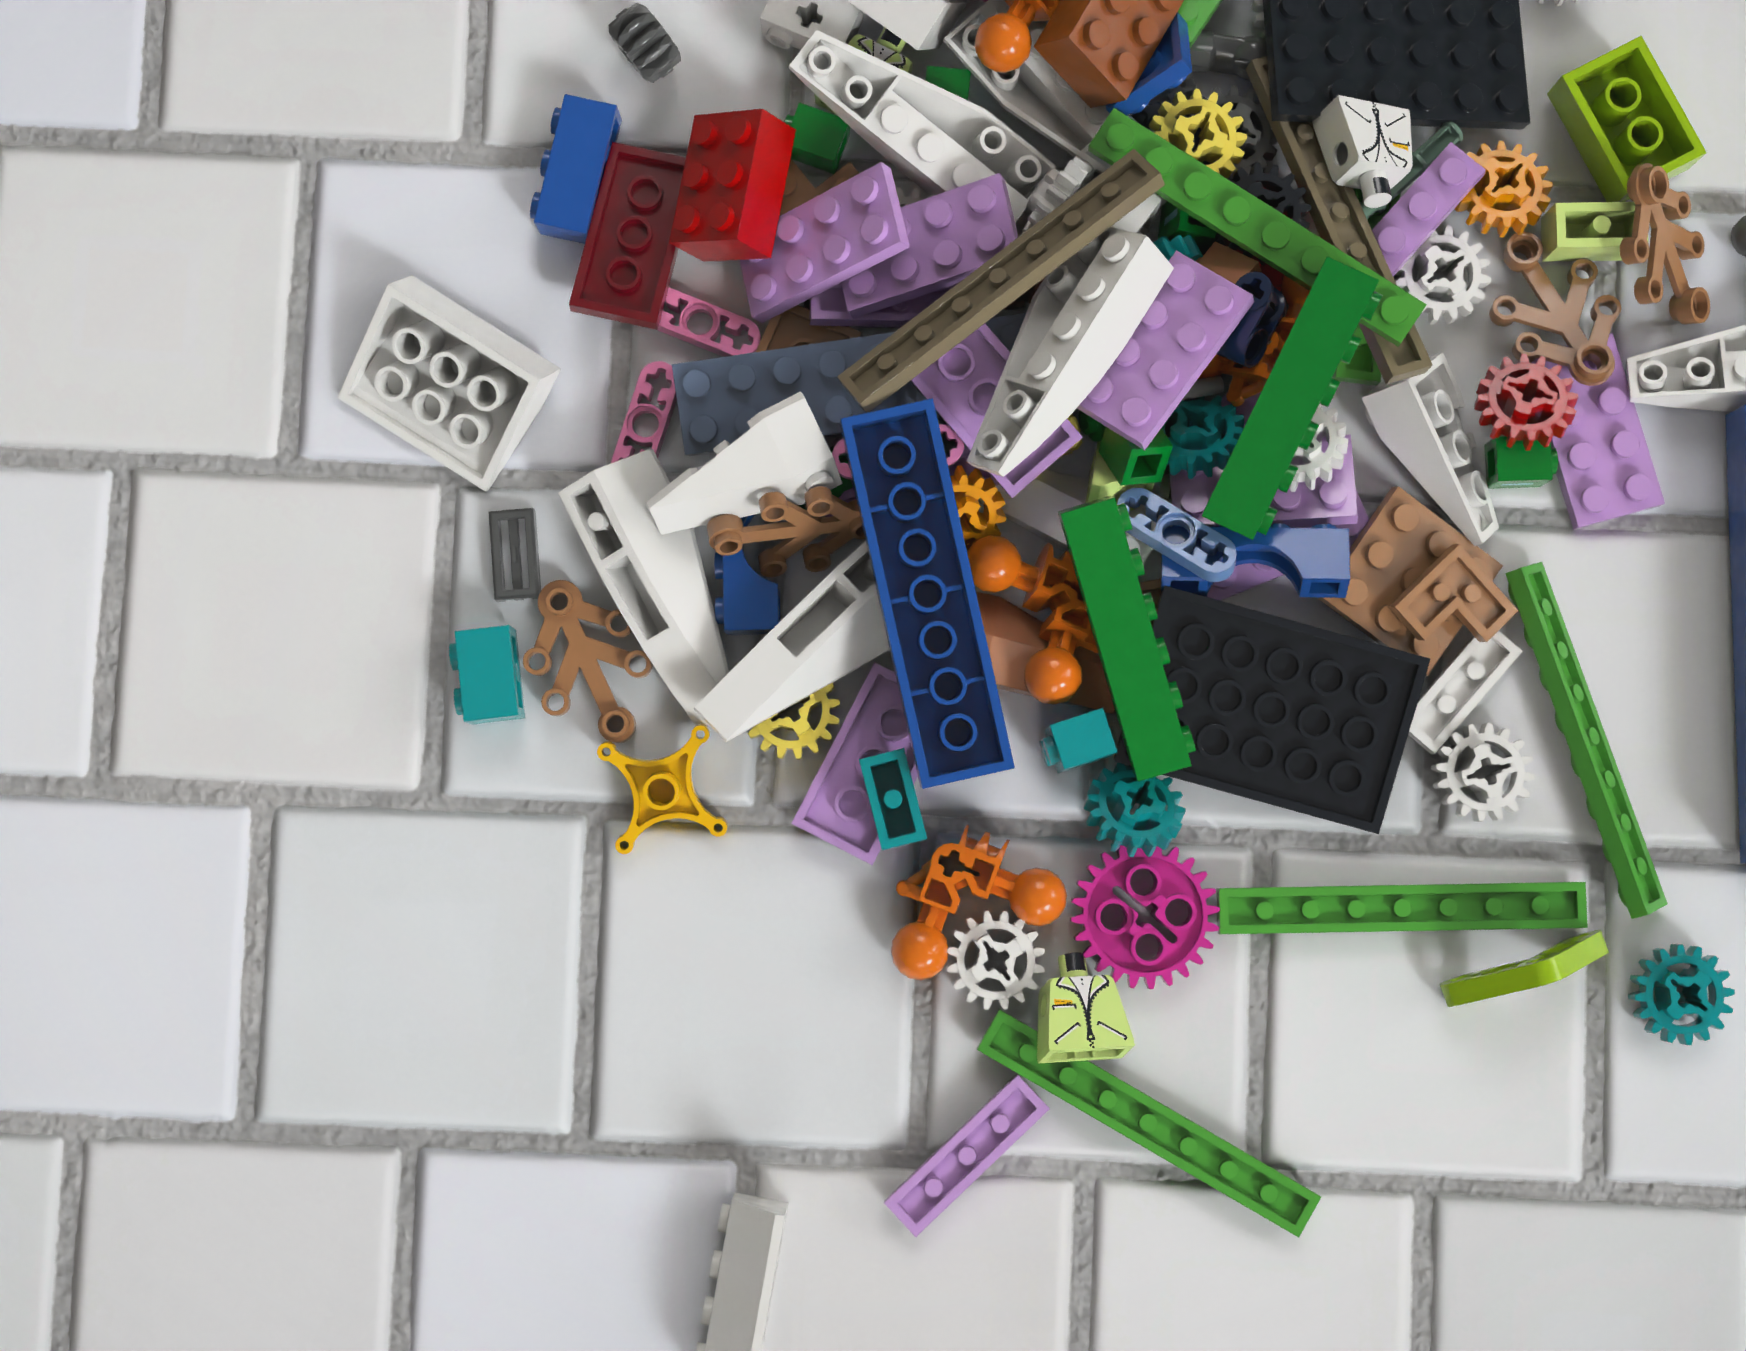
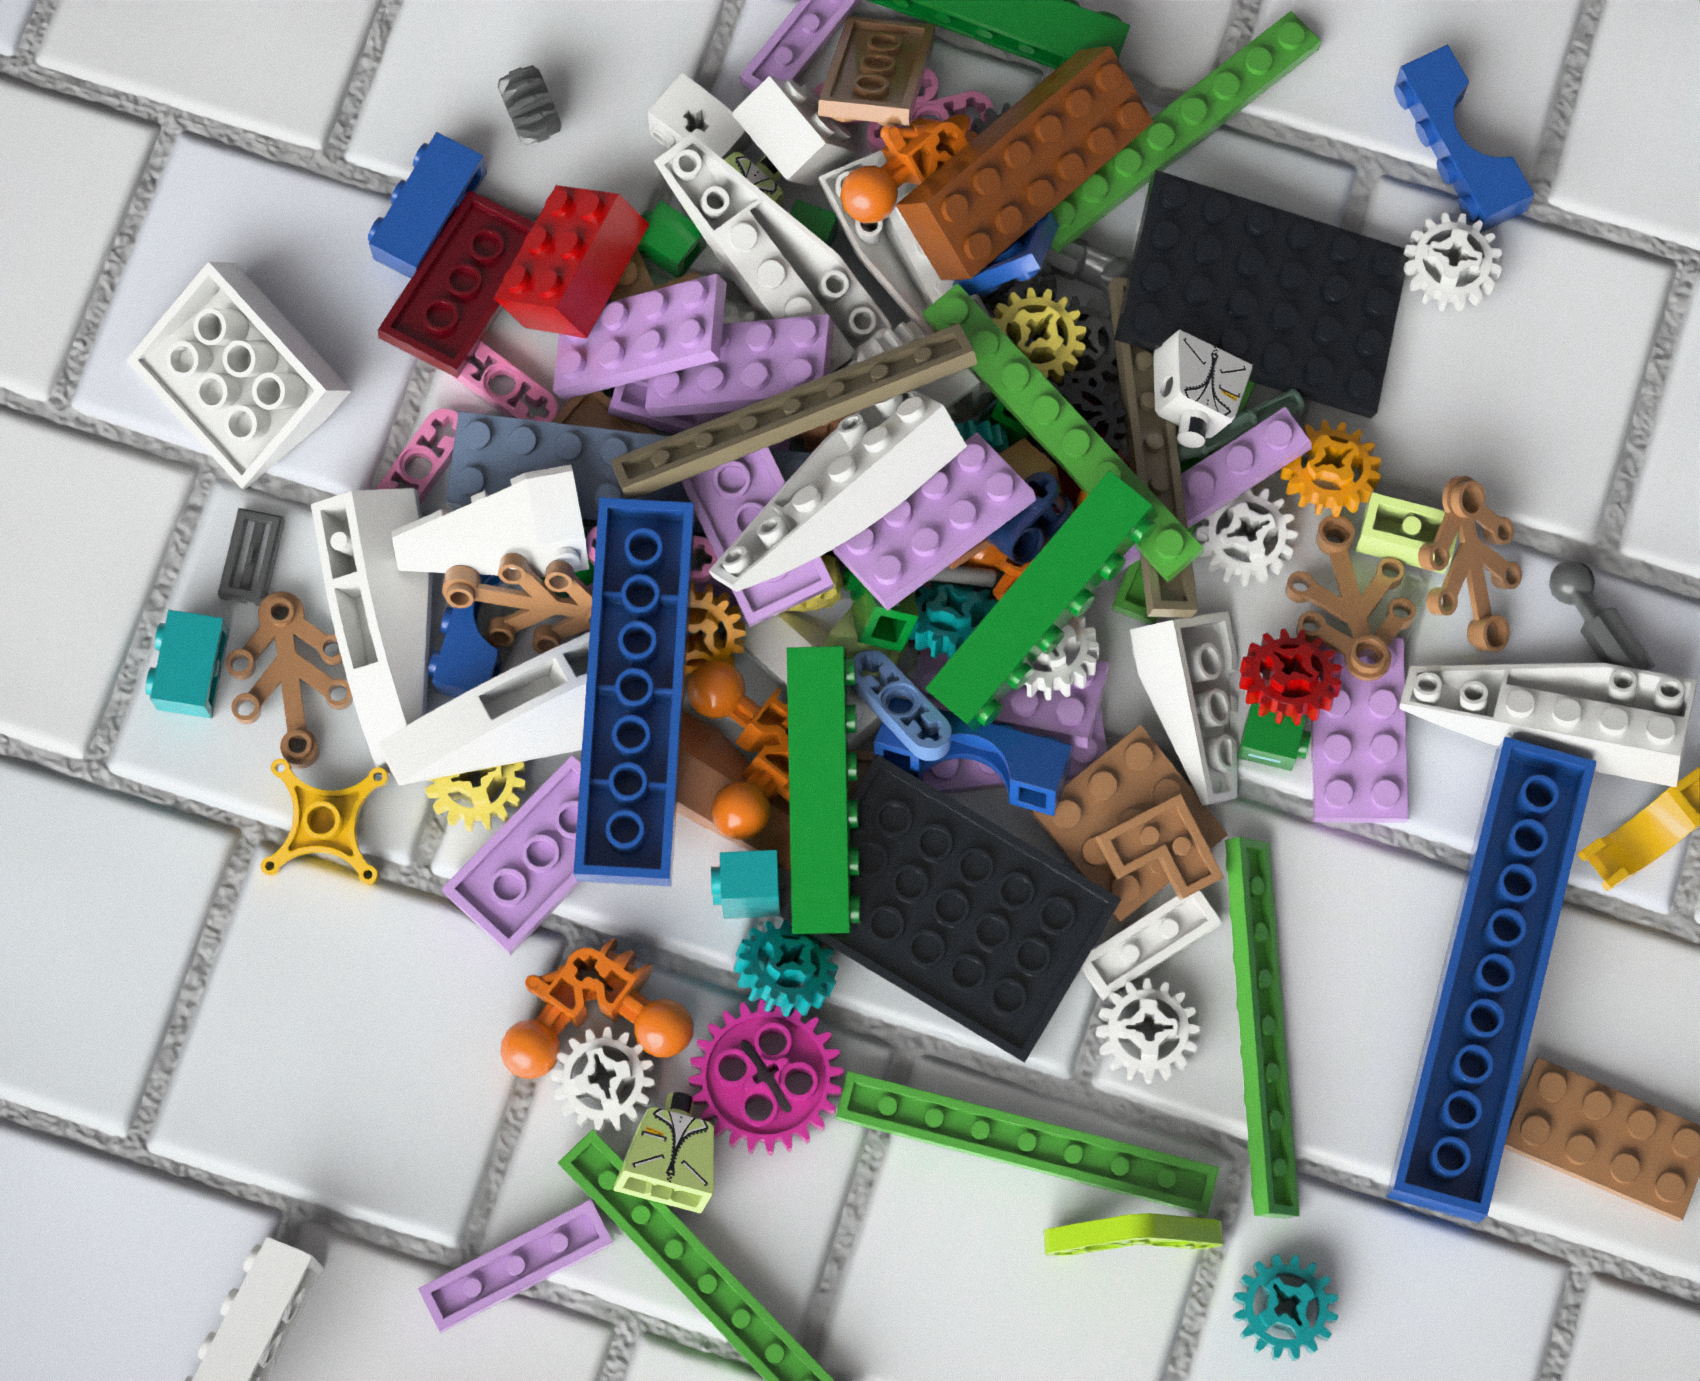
camera: 10 degrees right, 10 degrees down
(893, 799) = (545, 886): teal brick -> none
(1625, 117) = (1472, 430): lime brick -> none

